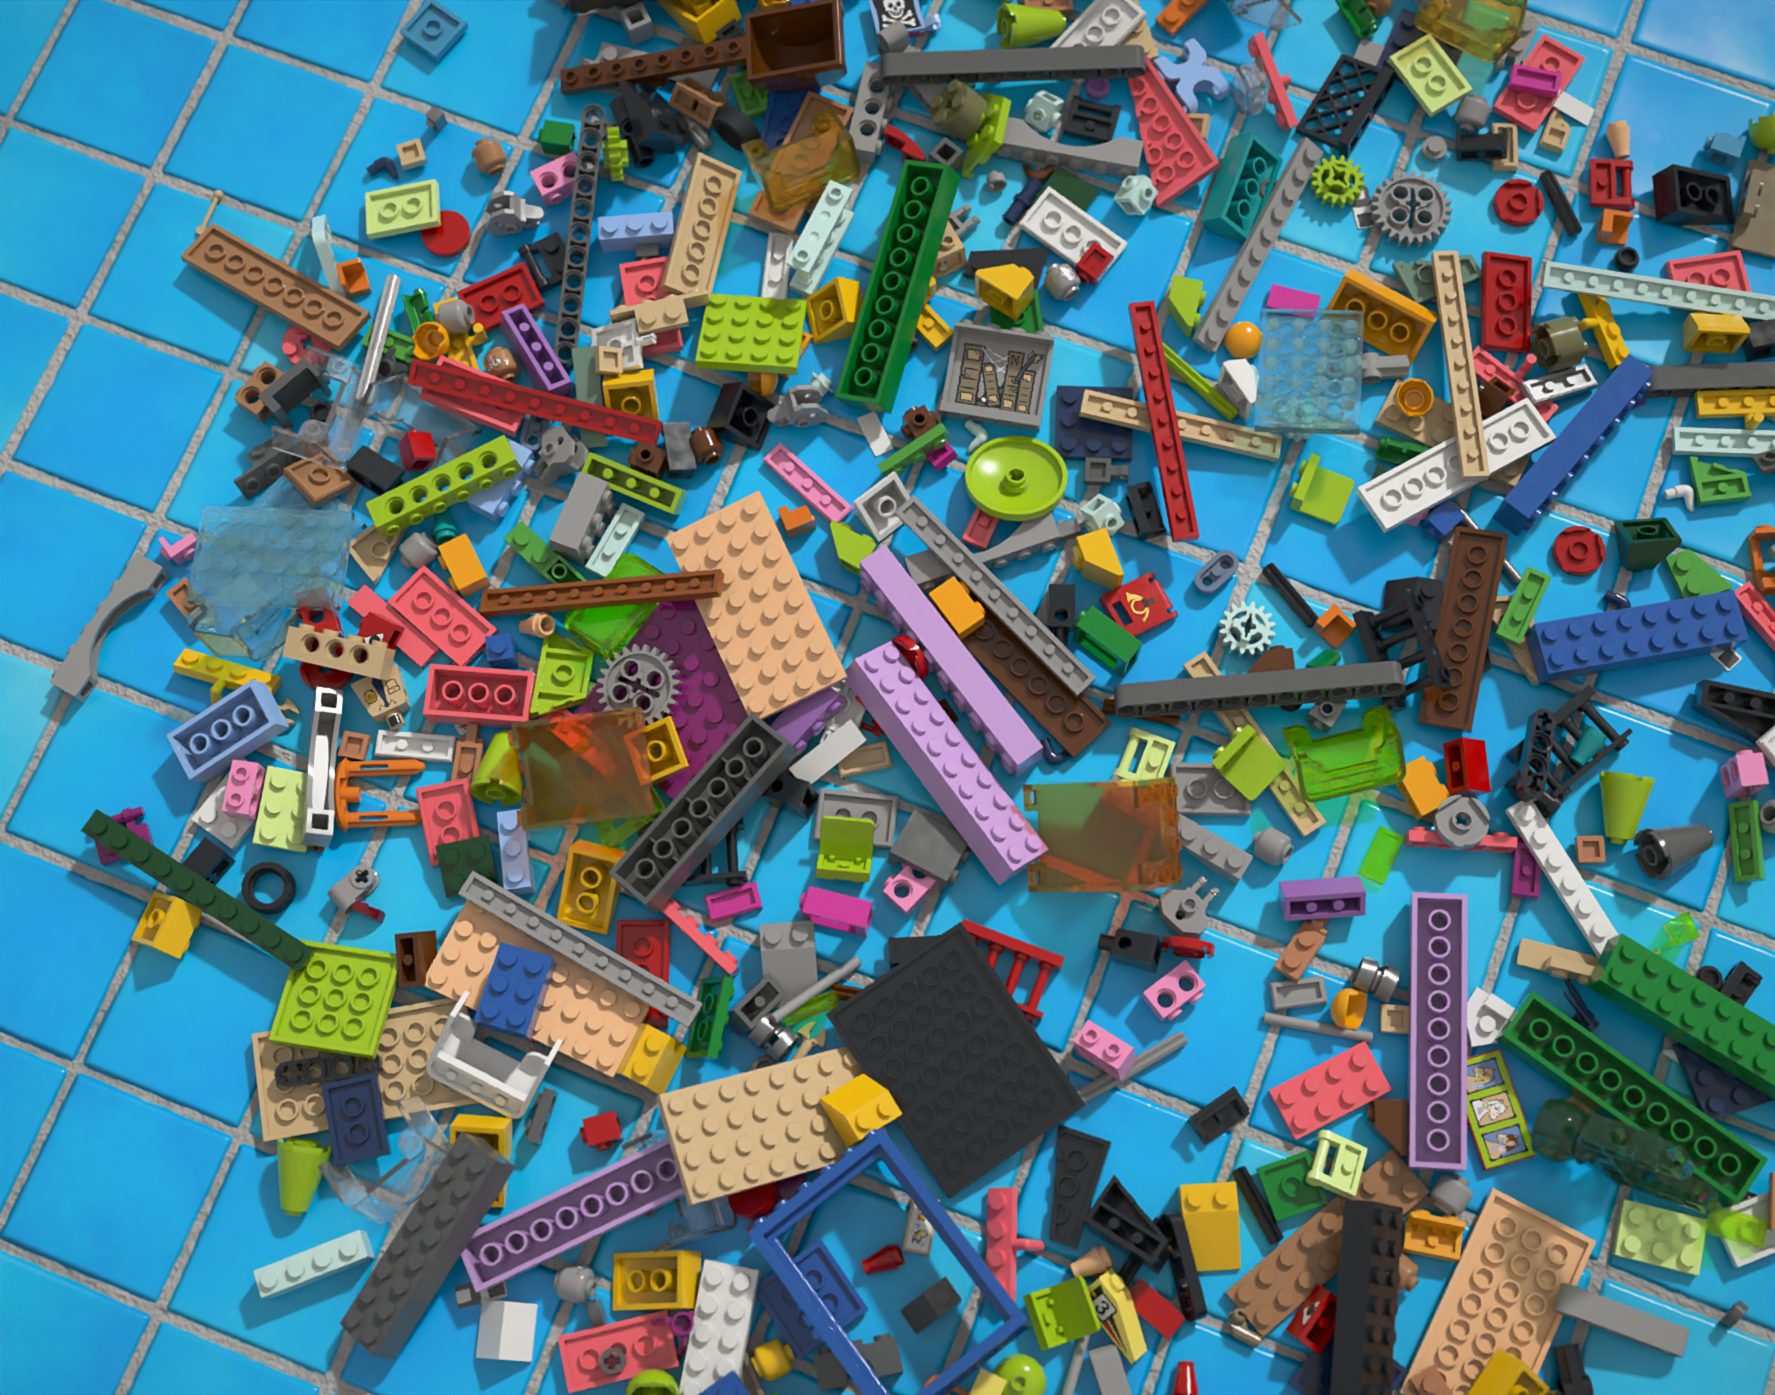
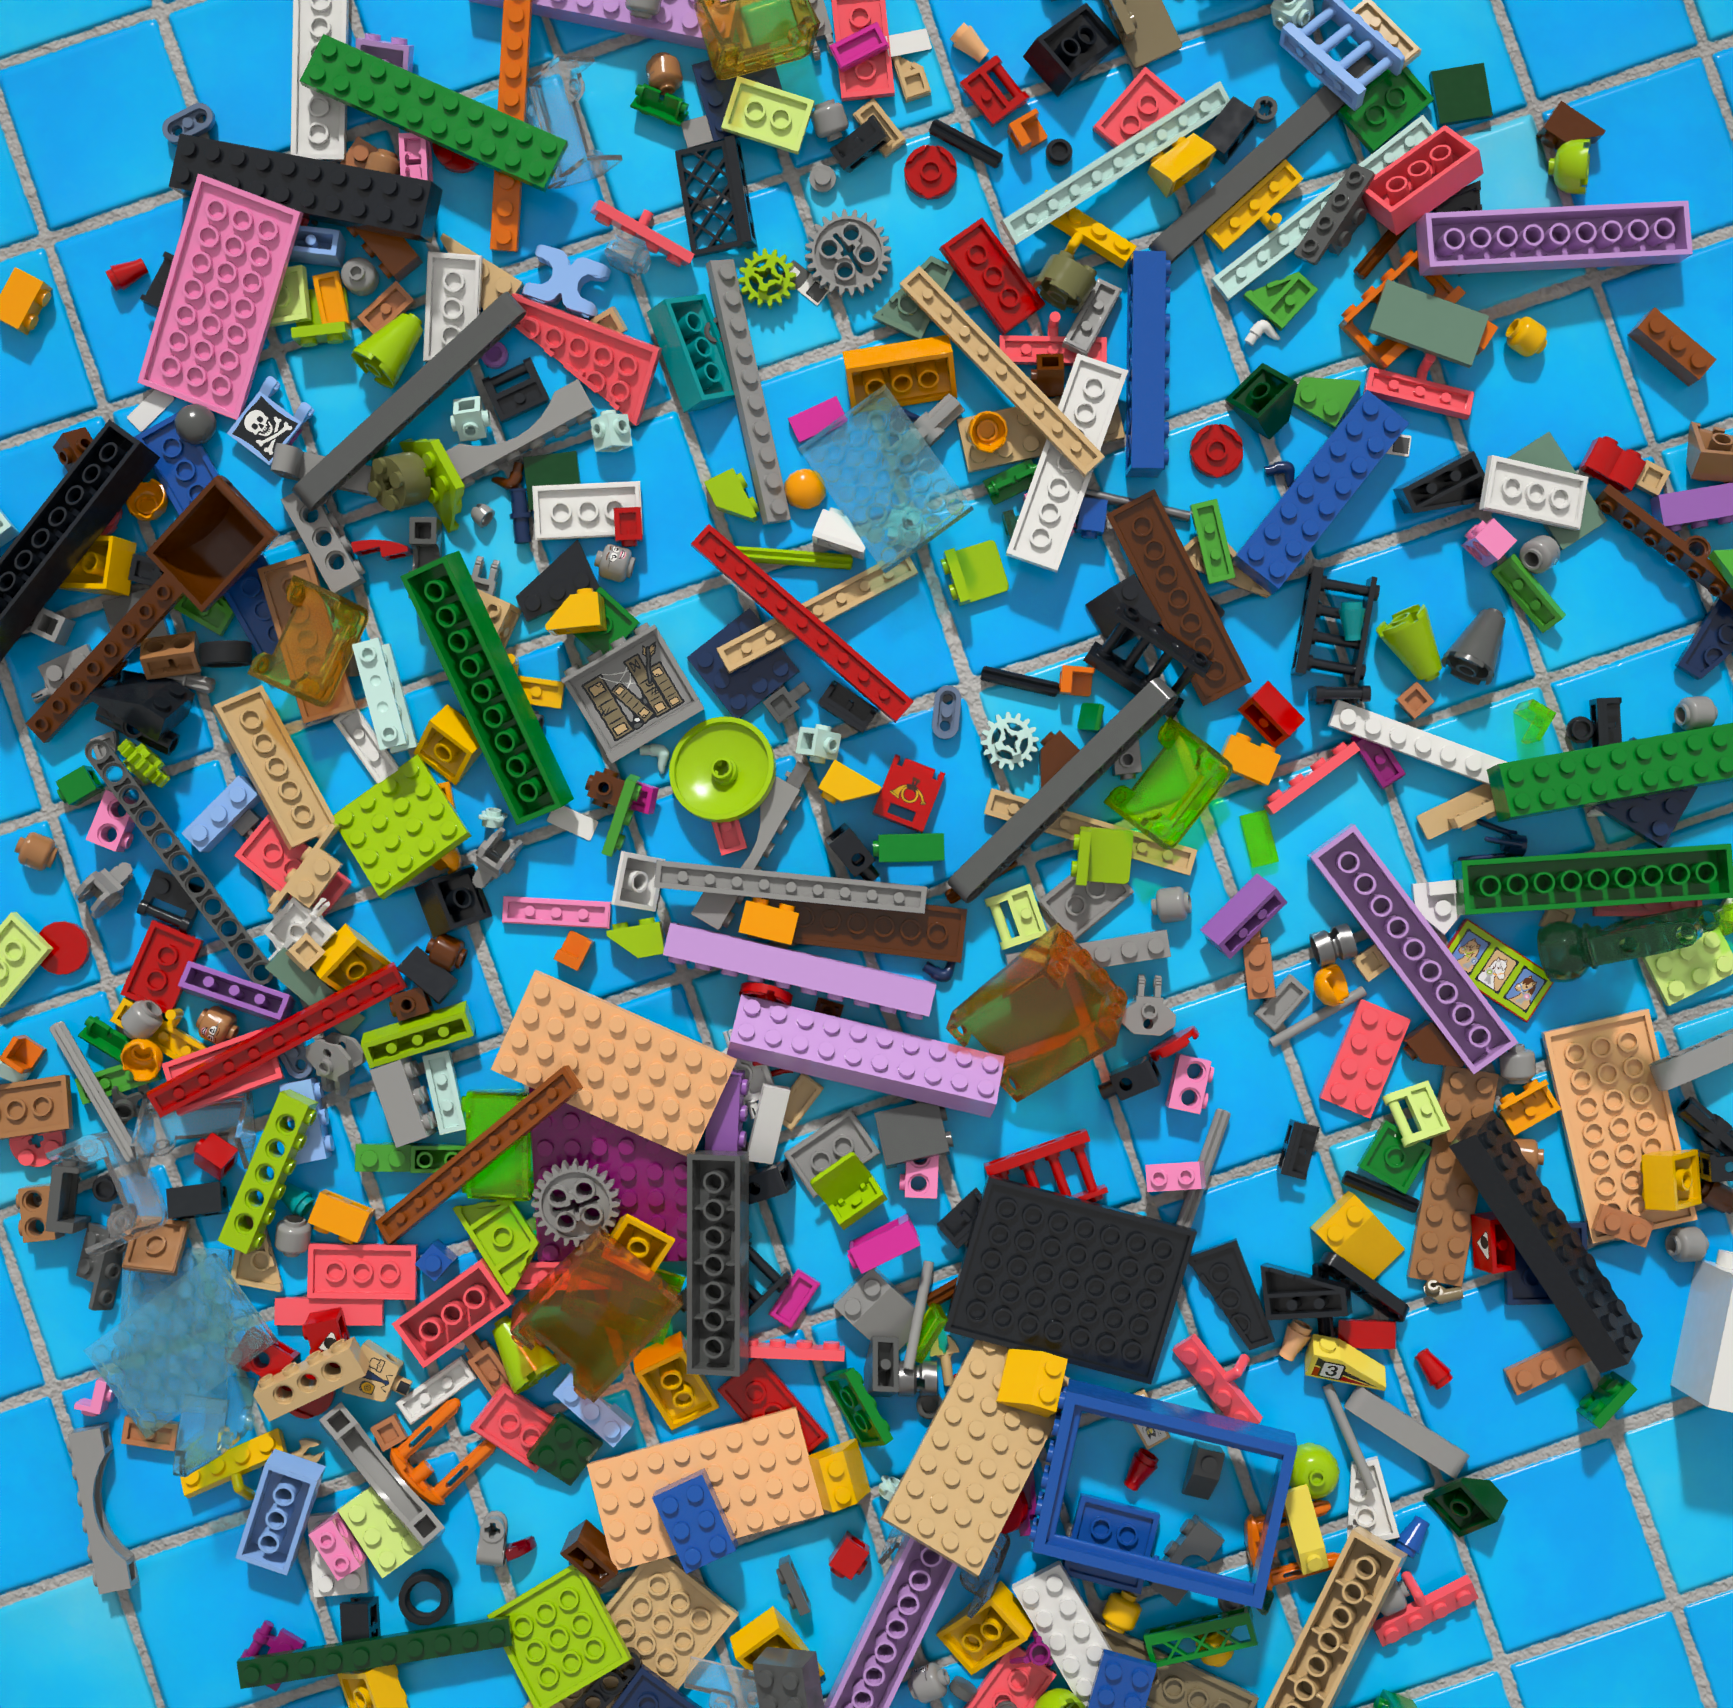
camera: 45 degrees left, 15 degrees up
(484, 1071) = (723, 1591): white windscreen -> none
(538, 625) = (446, 1216): light nougat cone -> none
(581, 949) = (714, 1444): light grey plate -> none
(1062, 1313) = (1303, 1398): lime bracket -> none
(1458, 836) = (1317, 758): light grey plate -> none
(1540, 757) = (1316, 667): black beam -> none

